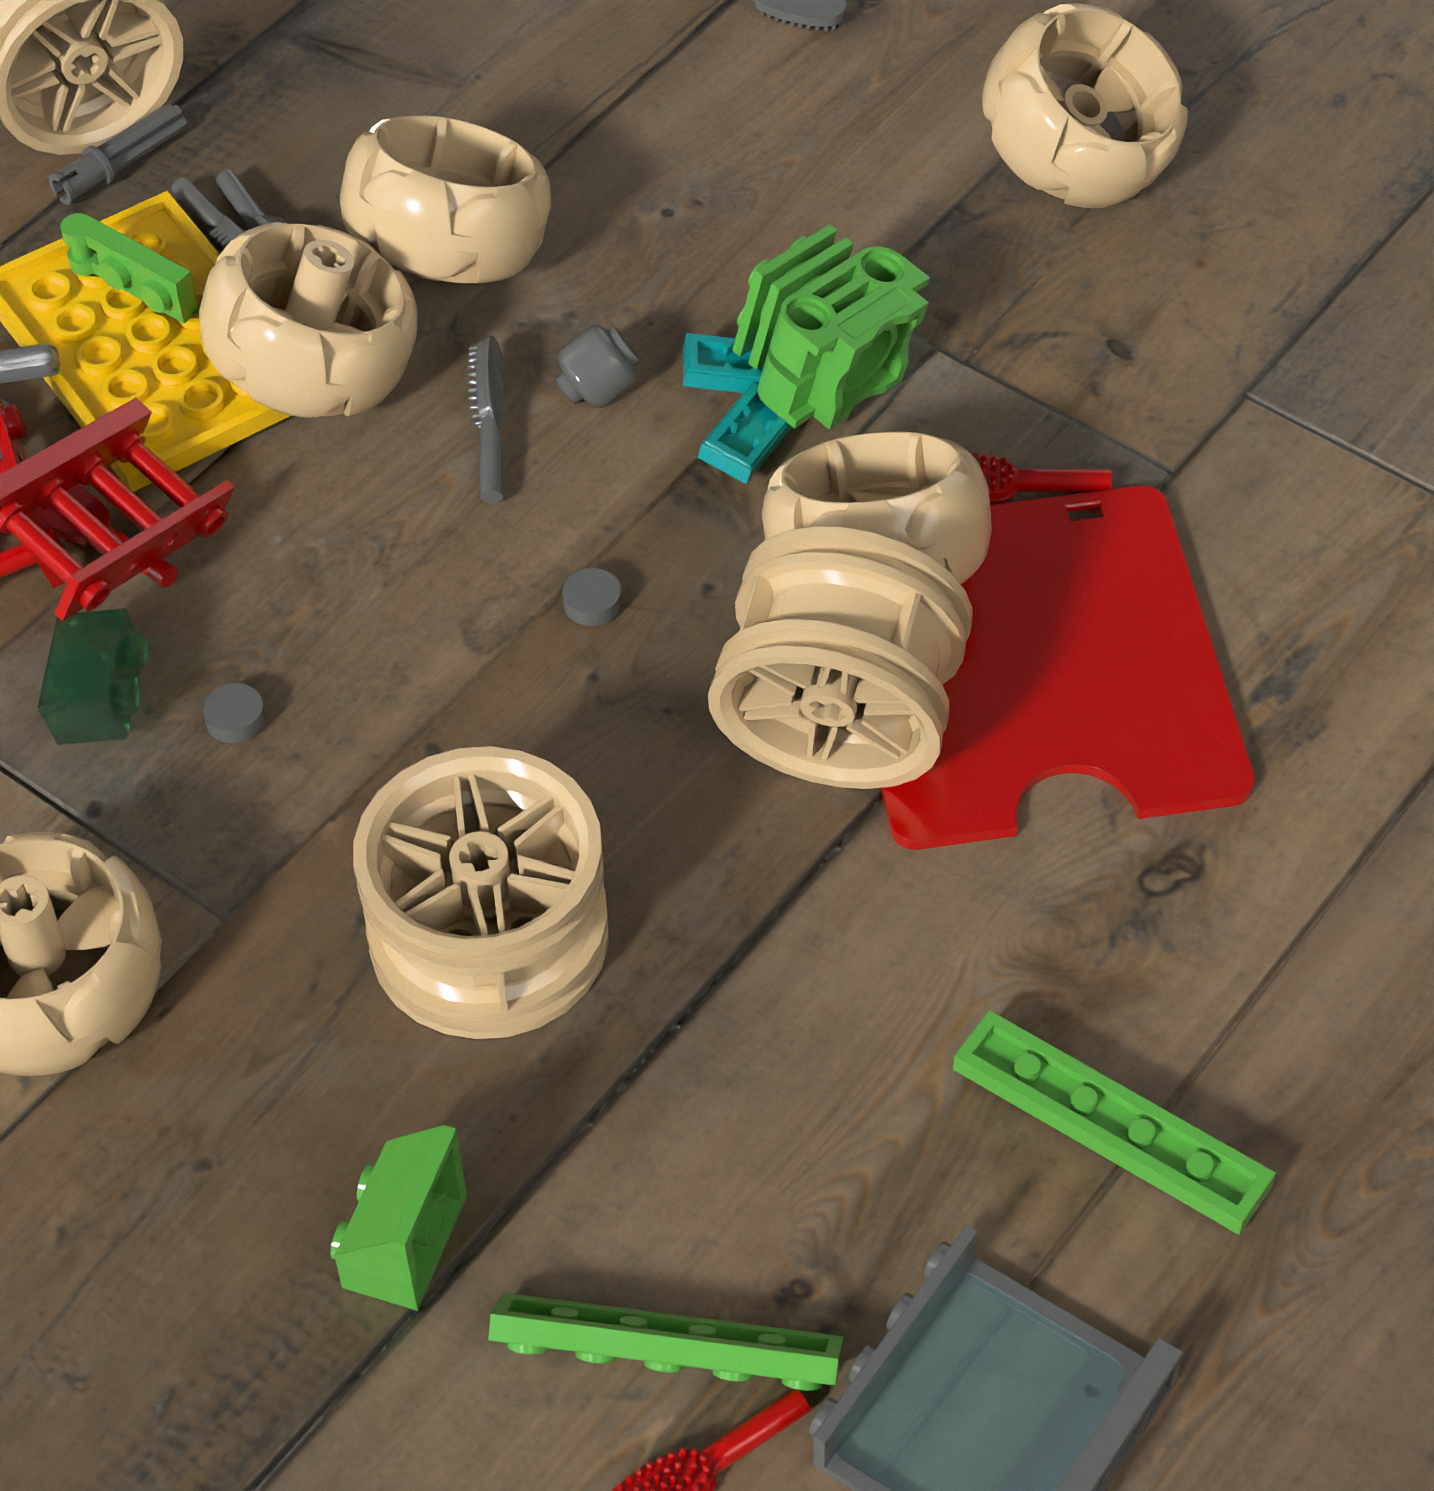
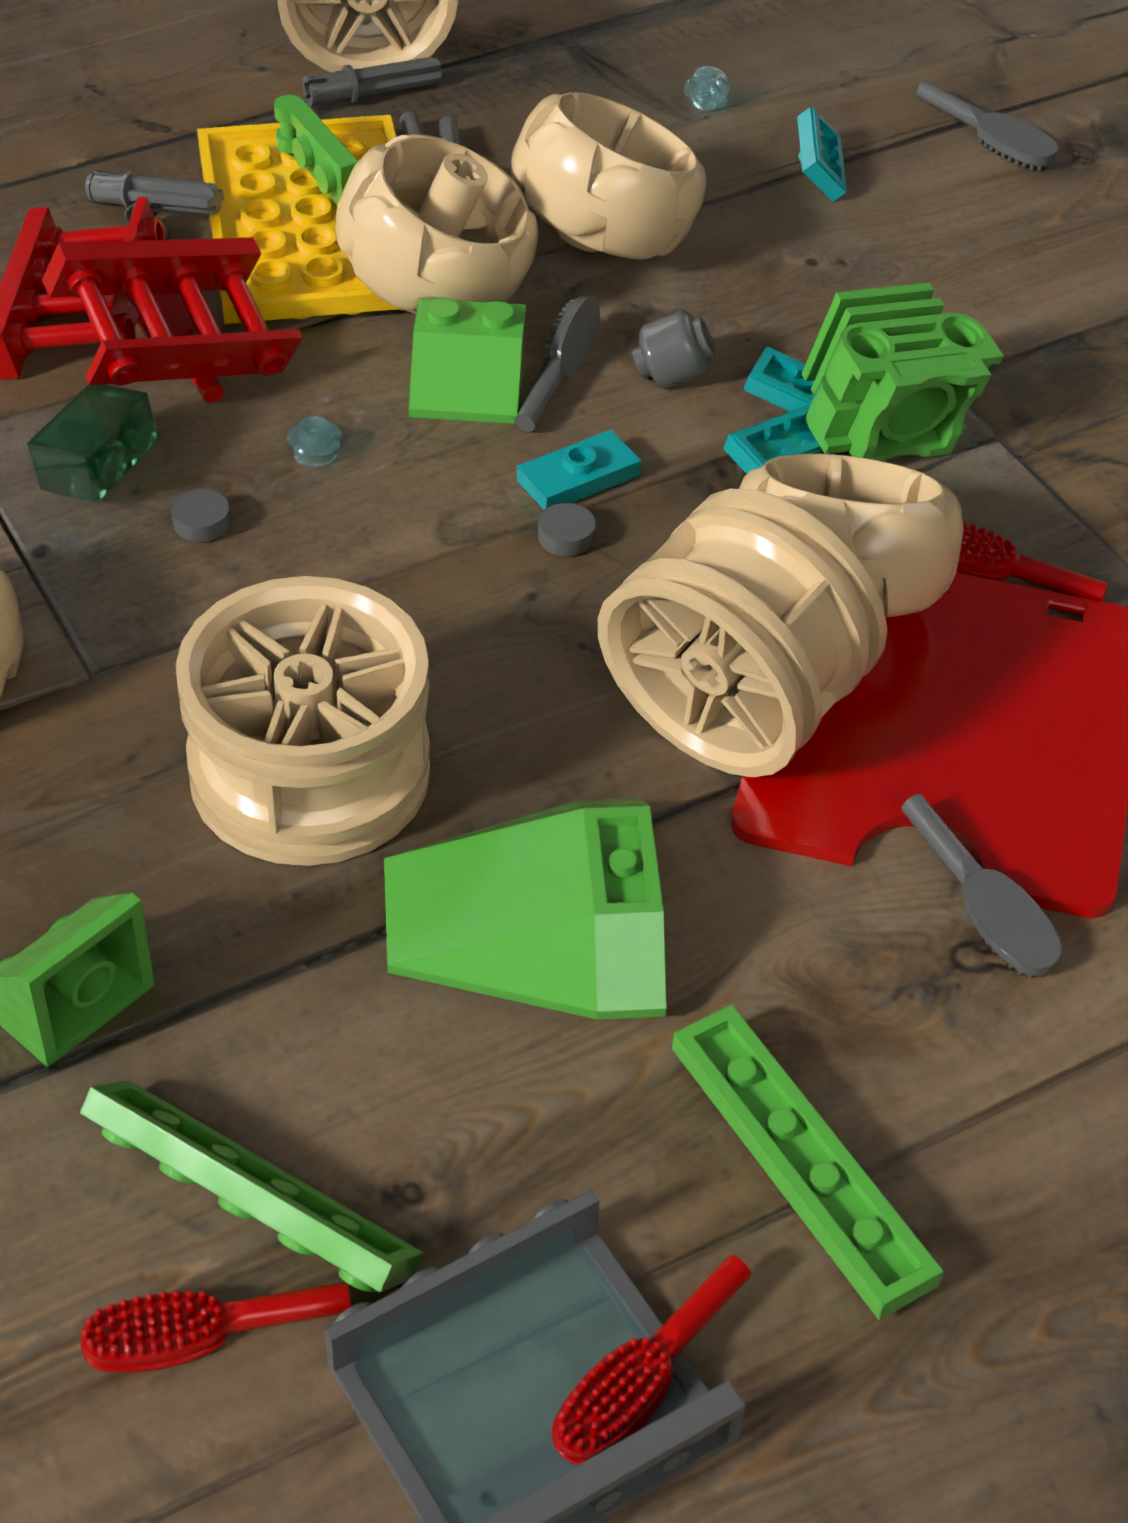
camera: 20 degrees right, 5 degrees down
(299, 592) = (315, 441): none -> clear light blue plate
(404, 451) = (467, 360): none -> bright green slope
(468, 46) = (709, 80): none -> clear light blue plate
(569, 529) = (579, 470): none -> teal plate
(622, 87) = (821, 154): none -> teal plate
(776, 986) = (538, 911): none -> bright green wedge
(1072, 1370) = (635, 1378): none -> red piece
(1157, 823) = (994, 902): none -> dark grey piece

